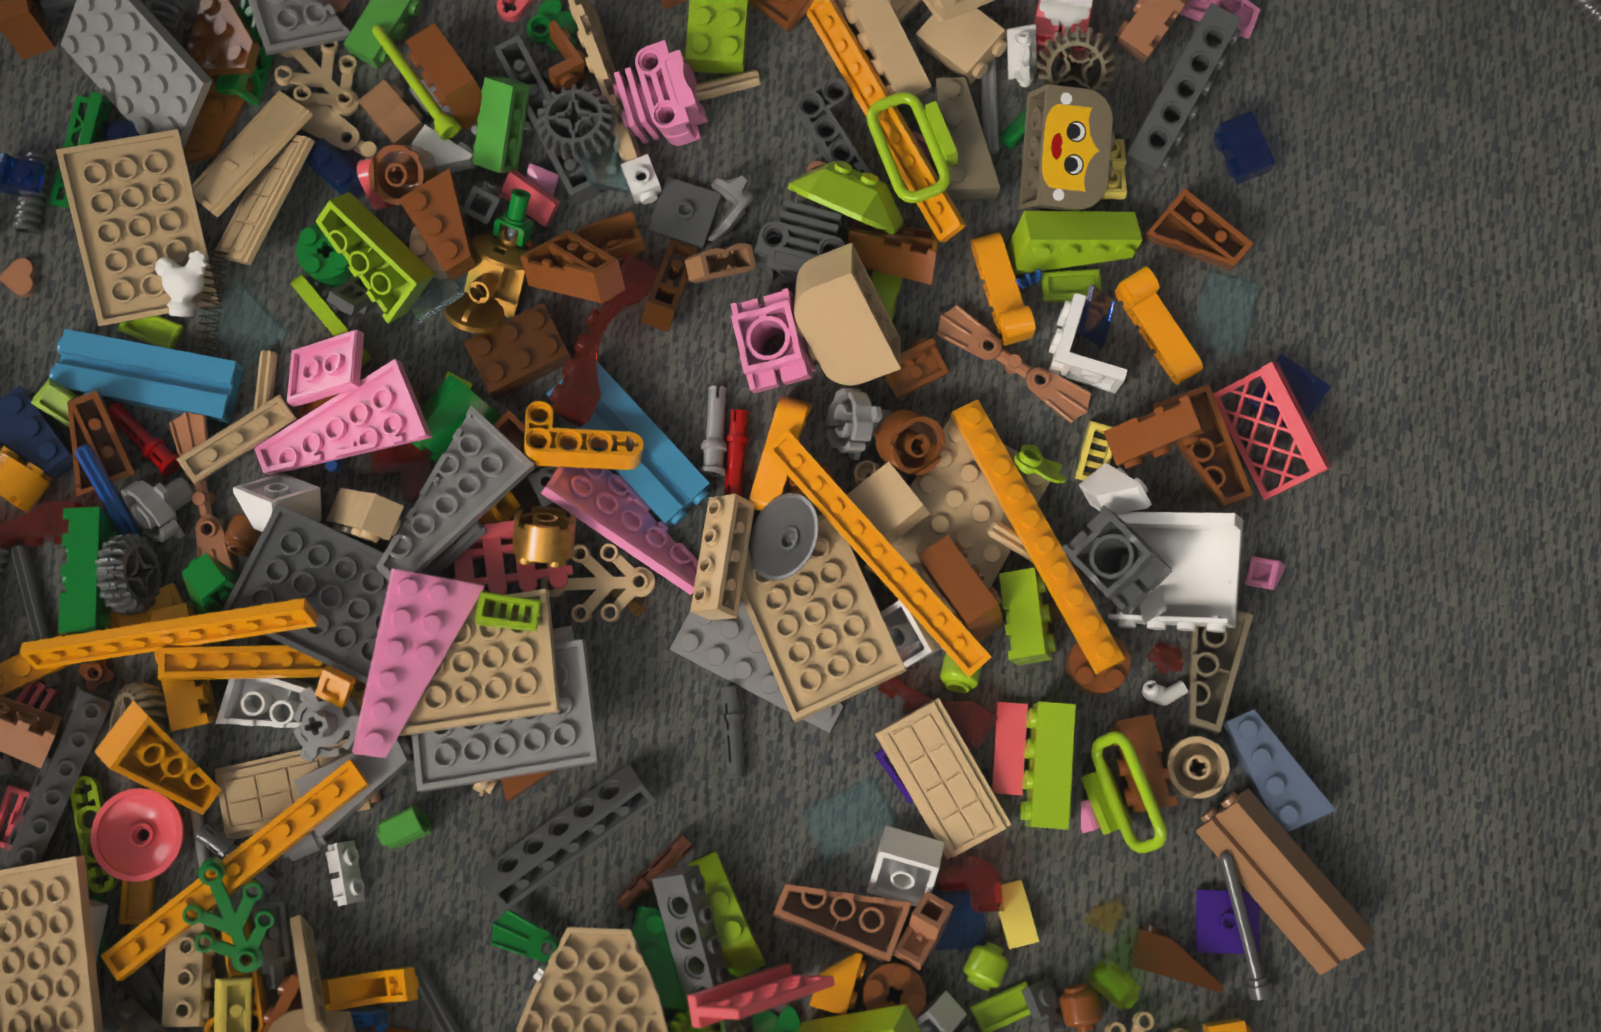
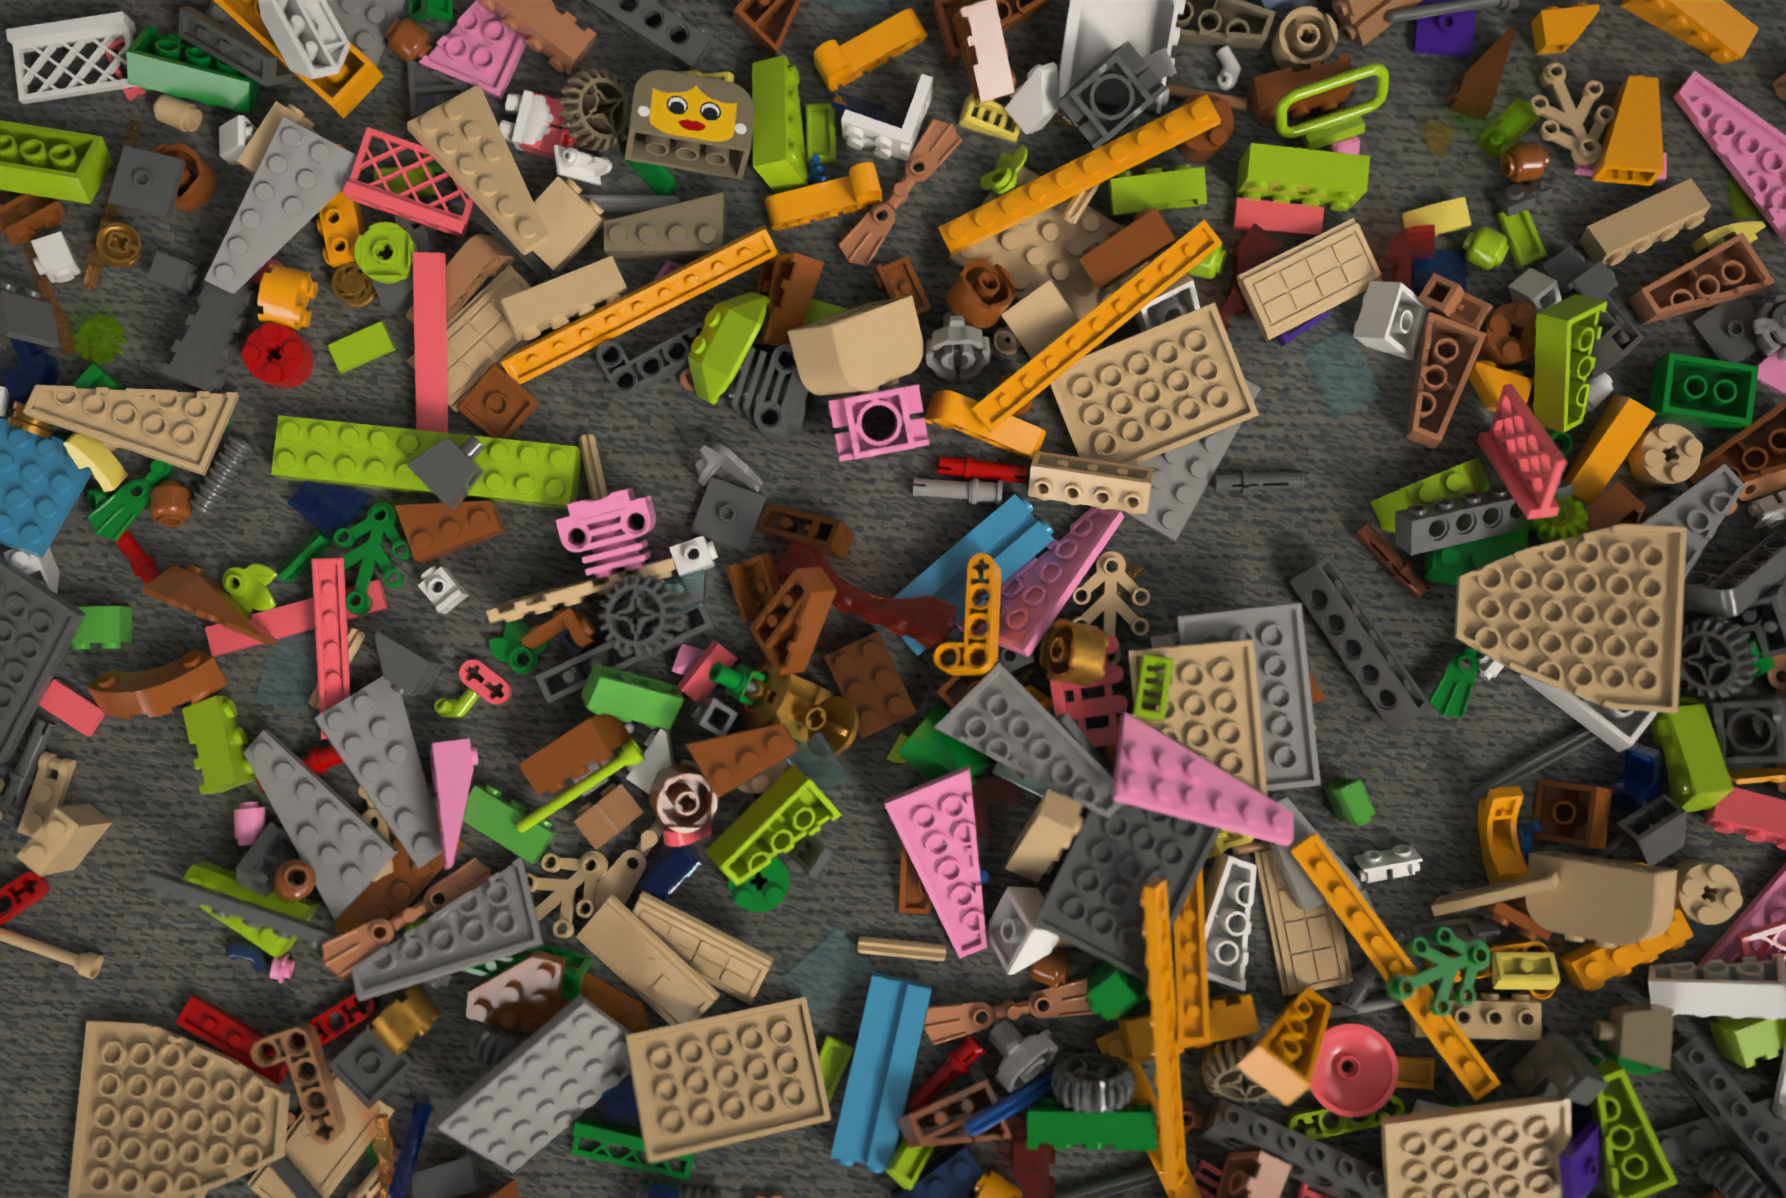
camera: 95 degrees left, 5 degrees up
(182, 282) = (789, 1031): white animal -> none
(215, 252) = (807, 1002): dark brown piece -> none
(237, 439) = (953, 974): tan tile -> none
(323, 311) = (829, 879): lime beam -> none
(325, 368) = (884, 881): bright pink tile -> none
(335, 686) = (1222, 862): light orange plate -> none
(336, 723) = (1248, 874): light grey piece -> none
(720, 263) = (788, 476): medium nougat brick -> none
(783, 536) = (1075, 418): dark grey hat -> none
(935, 135) = (669, 249): lime bar -> none
(1132, 678) = (1183, 93): none -> medium nougat bar
(1166, 658) = (1195, 63): clear red plant -> none

